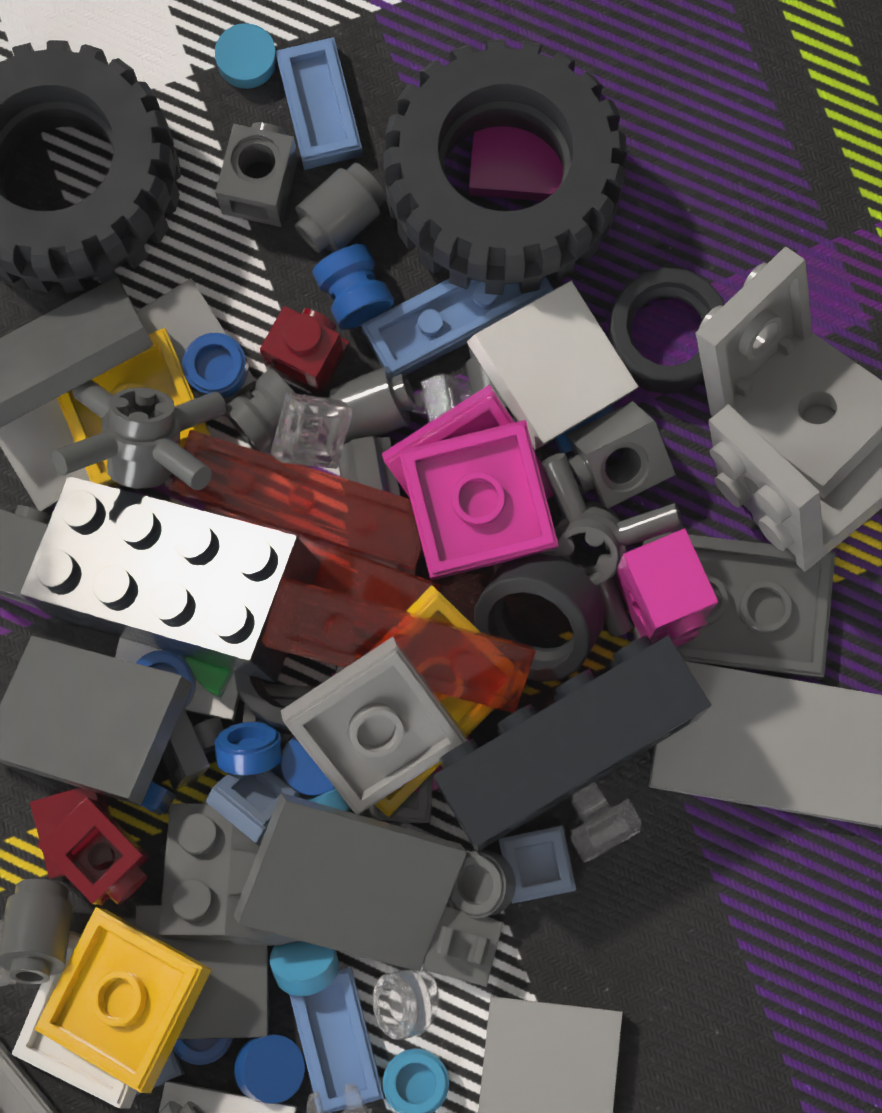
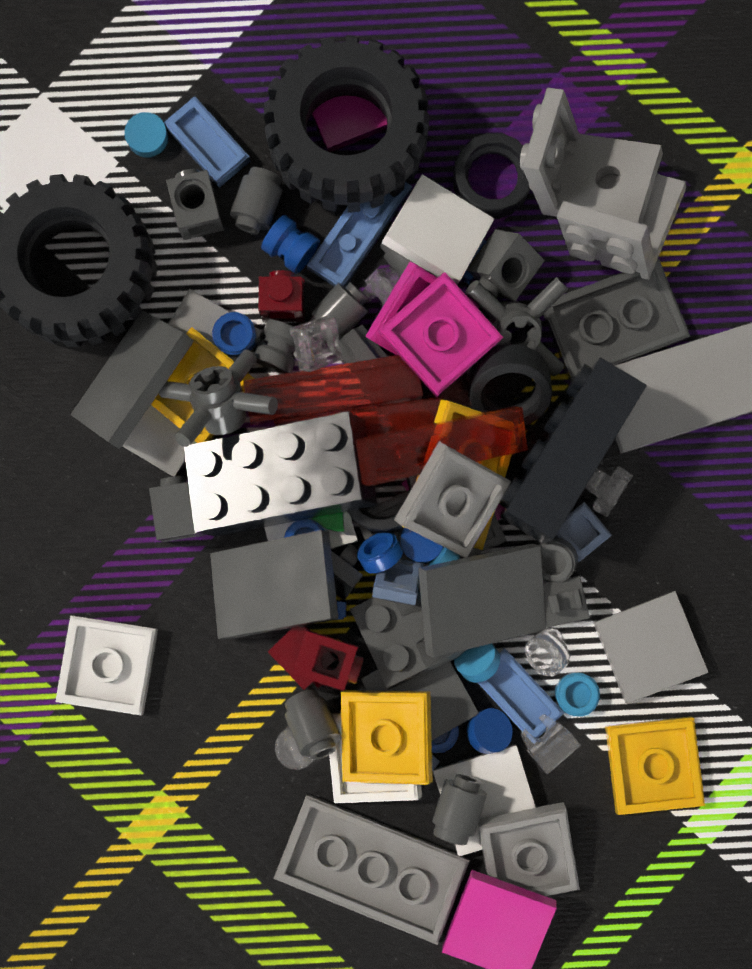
camera: 30 degrees left, 5 degrees up
(666, 589) = (579, 331): dark pink brick -> none

